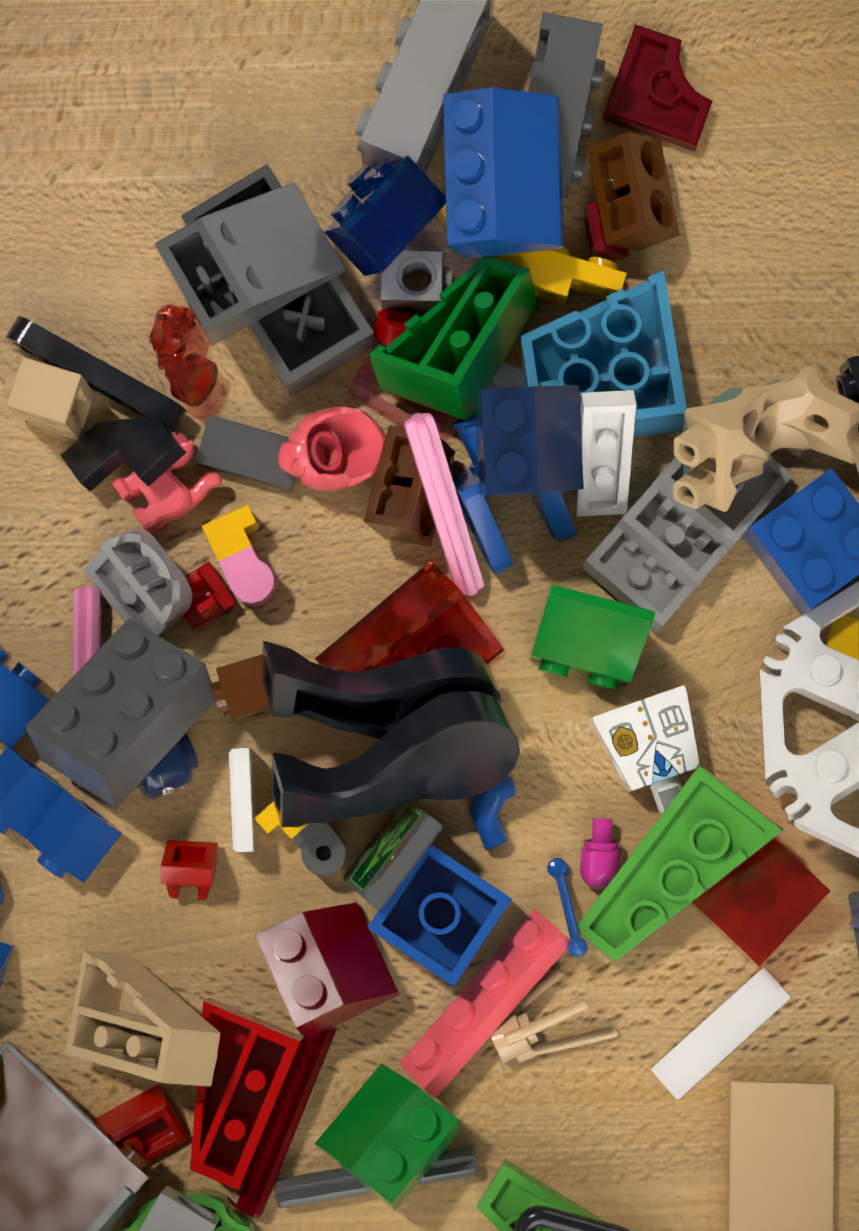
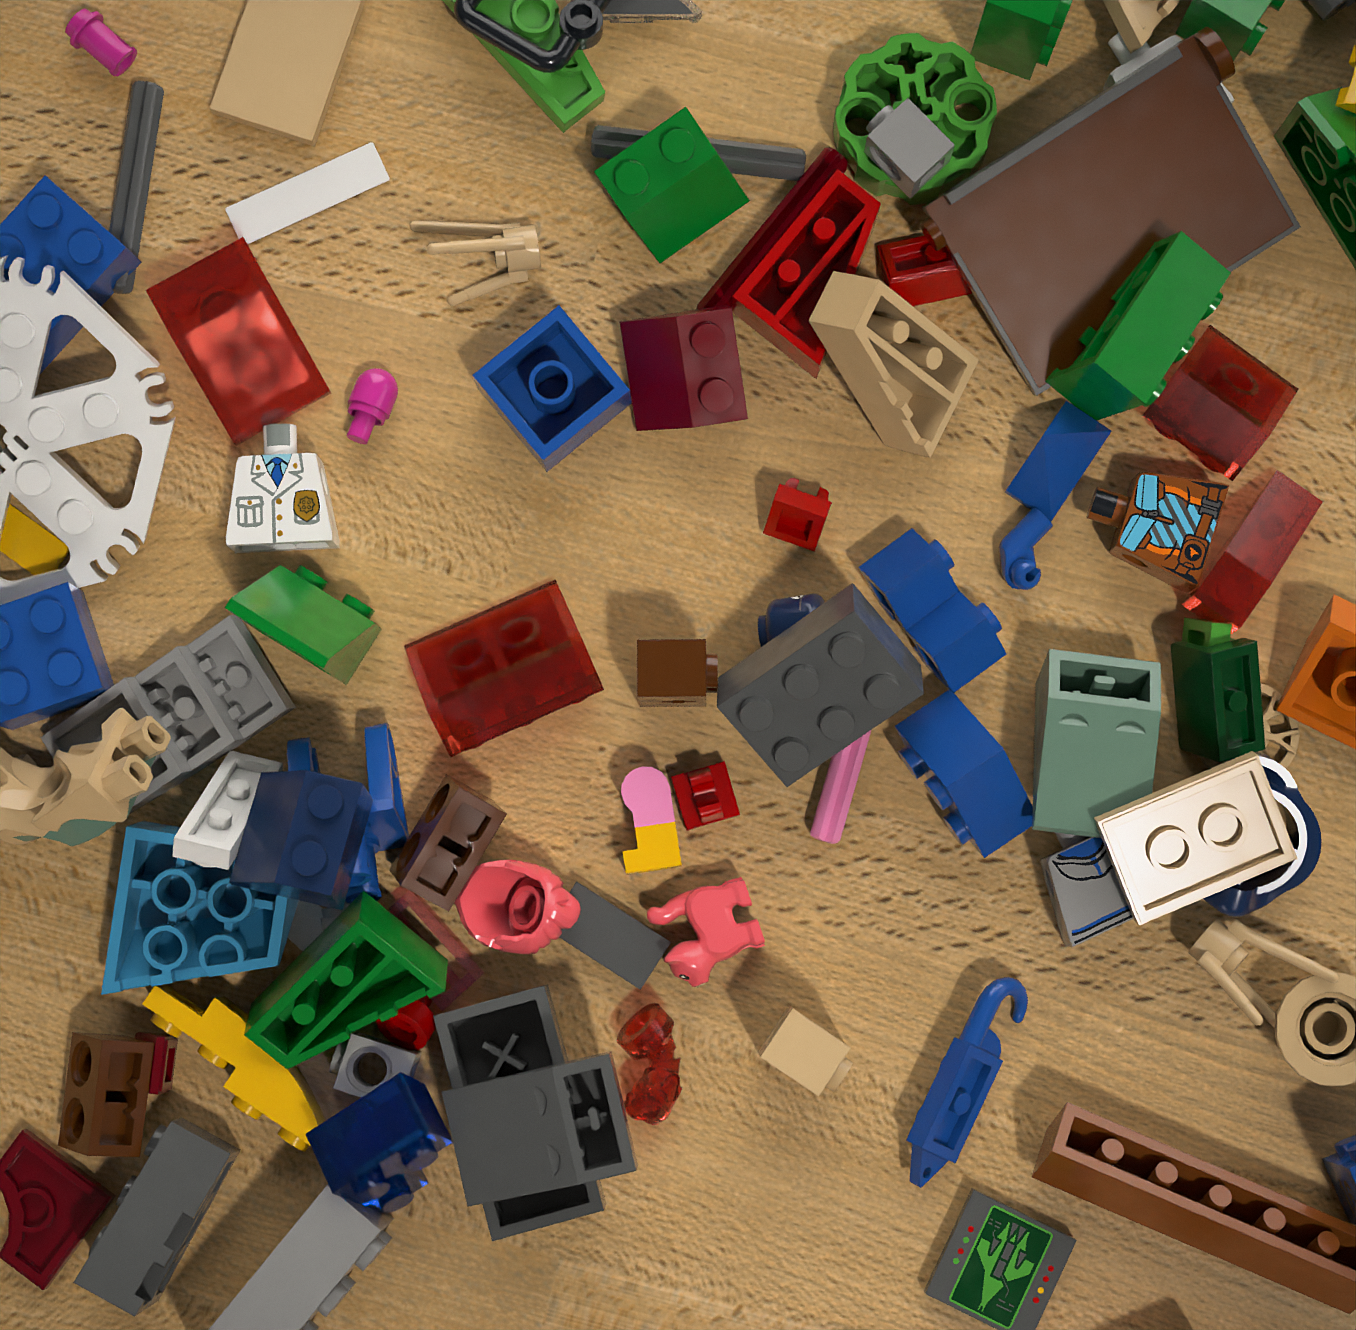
camera: 160 degrees left, 0 degrees up
(97, 373) = (749, 1070): black beam -> none
(139, 441) = (754, 987): black tile -> none
(140, 580) = (764, 826): light grey slope -> none
(243, 800) = (722, 565): white tile -> none
(319, 843) = (657, 501): dark grey leg -> none
(392, 854) = (582, 460): dark grey tile -> none
(434, 724) = (492, 590): black animal -> none
(444, 502) = (415, 808): bright pink axle -> none
(484, 1003) = (534, 288): coral plate -> none
(485, 812) = (472, 487): blue arm -> none
(502, 172) = (236, 1148): blue slope -> none
(559, 871) = (418, 401): blue hinge -> none
(682, 856) = (277, 374): bright green wing -> none

